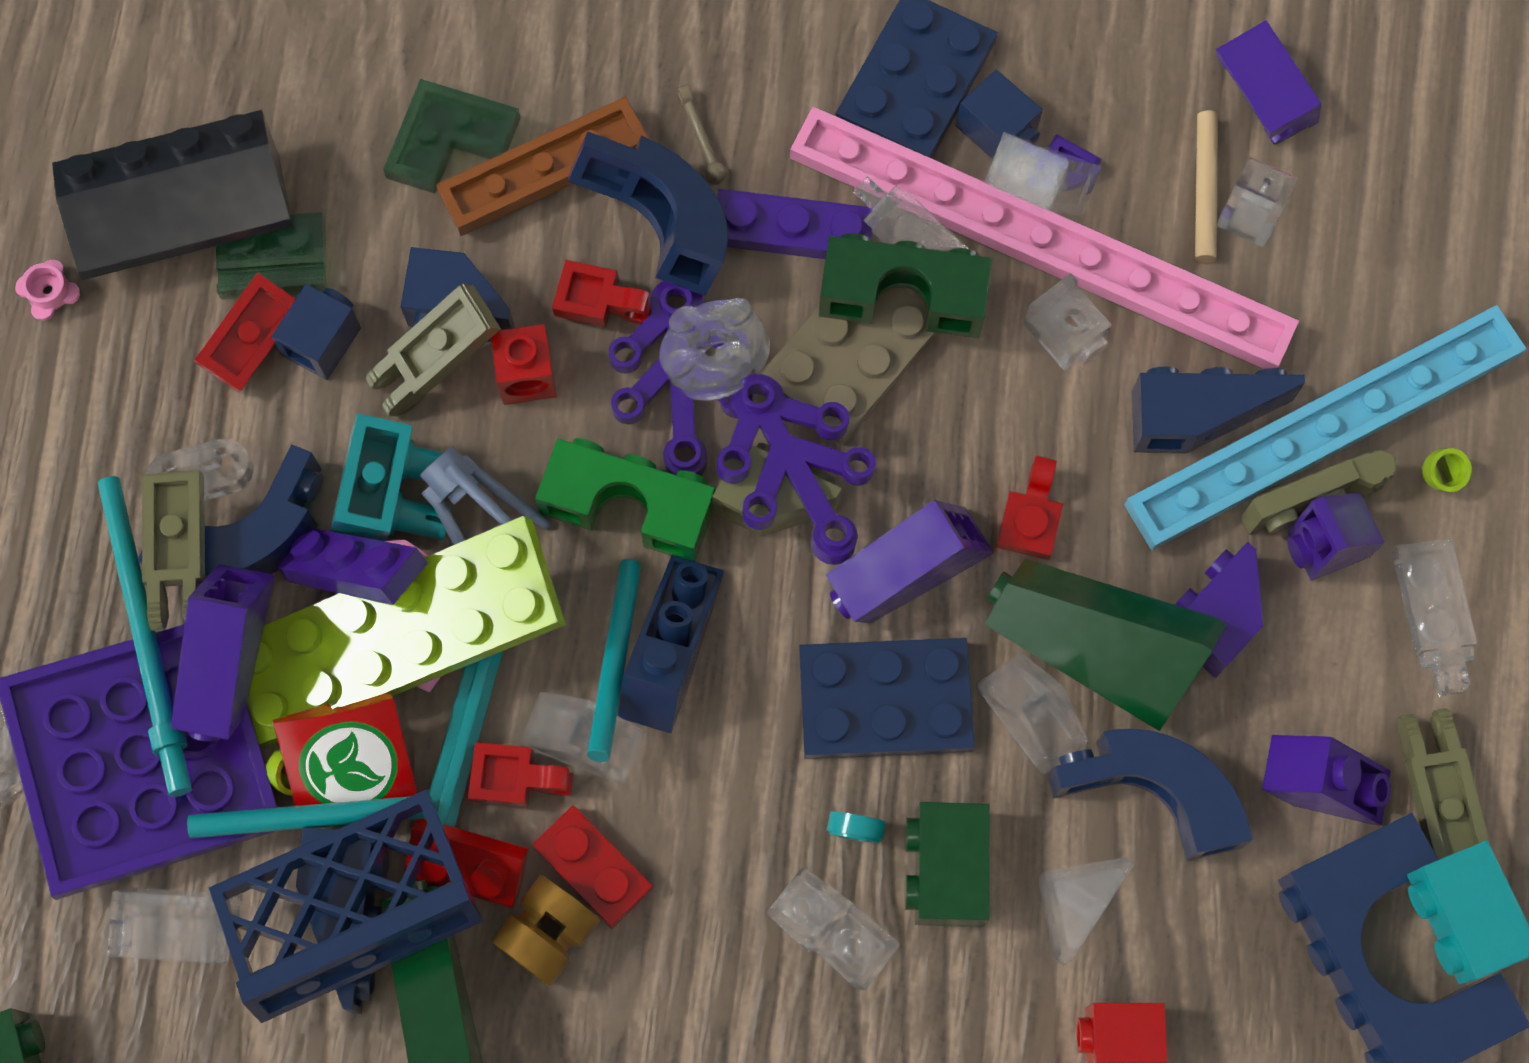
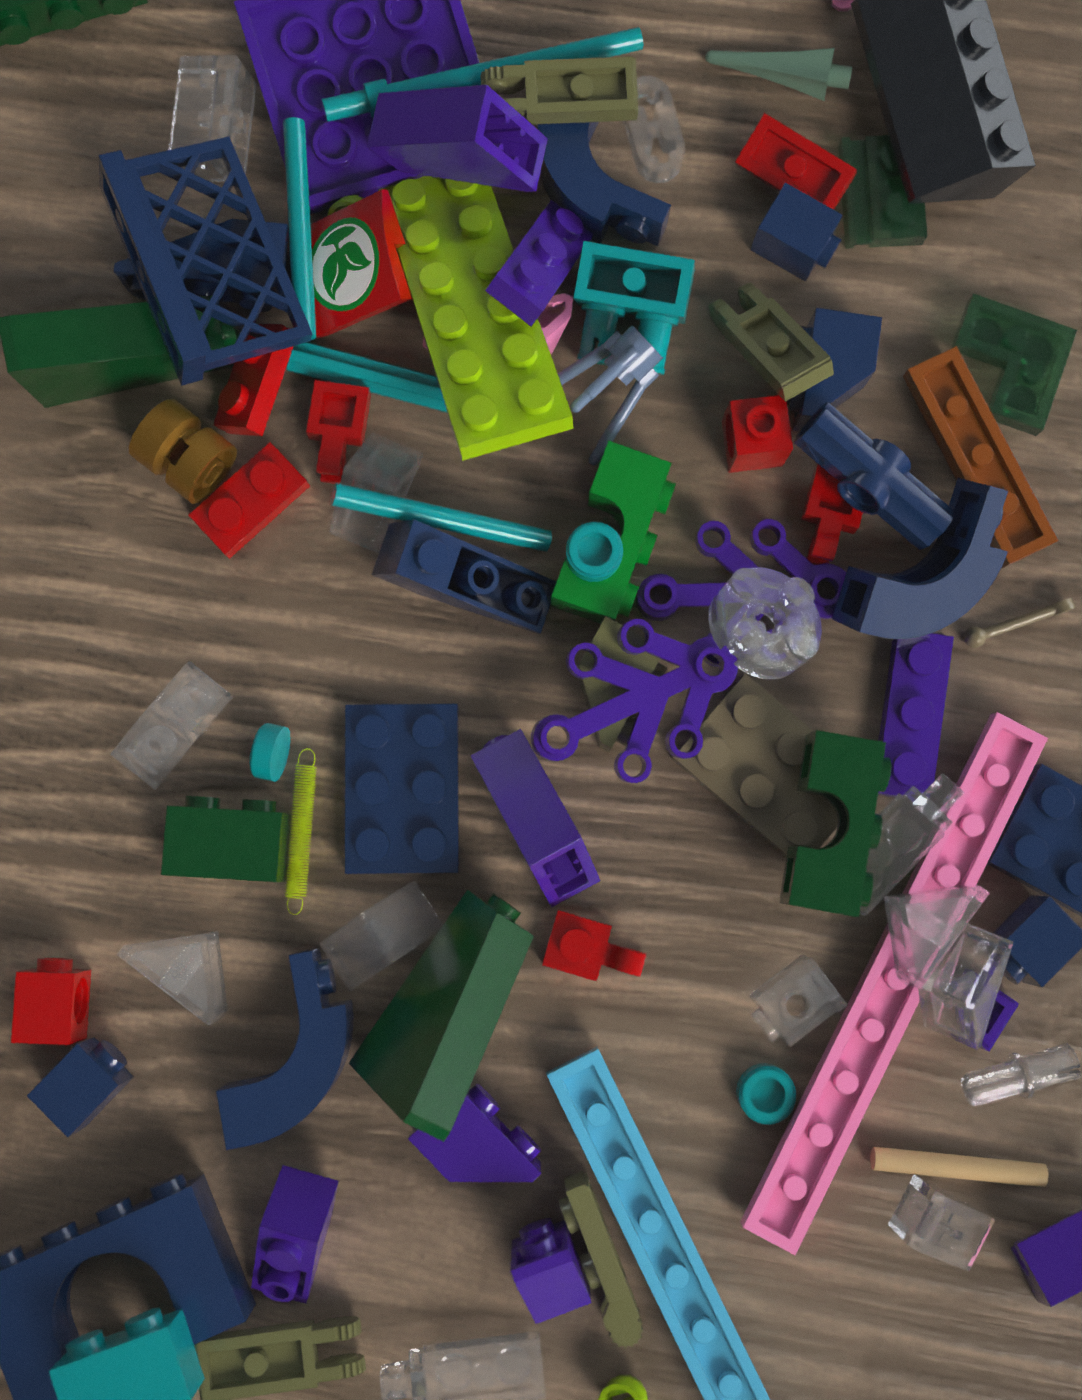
camera: 90 degrees right, 10 degrees up
(143, 328) = (802, 70): none -> sand green piece
(569, 253) = (874, 476): none -> dark blue piece
(649, 506) = (594, 551): none -> teal tile
(886, 801) = (304, 820): none -> neon yellow piece
(994, 204) = (926, 926): none -> clear slope
(1120, 131) = (1021, 1075): none -> clear axle
(1154, 347) = (766, 1093): none -> teal tile
(1191, 409) = (695, 1121): dark blue slope -> none
(1202, 997) = (81, 1085): none -> dark blue brick

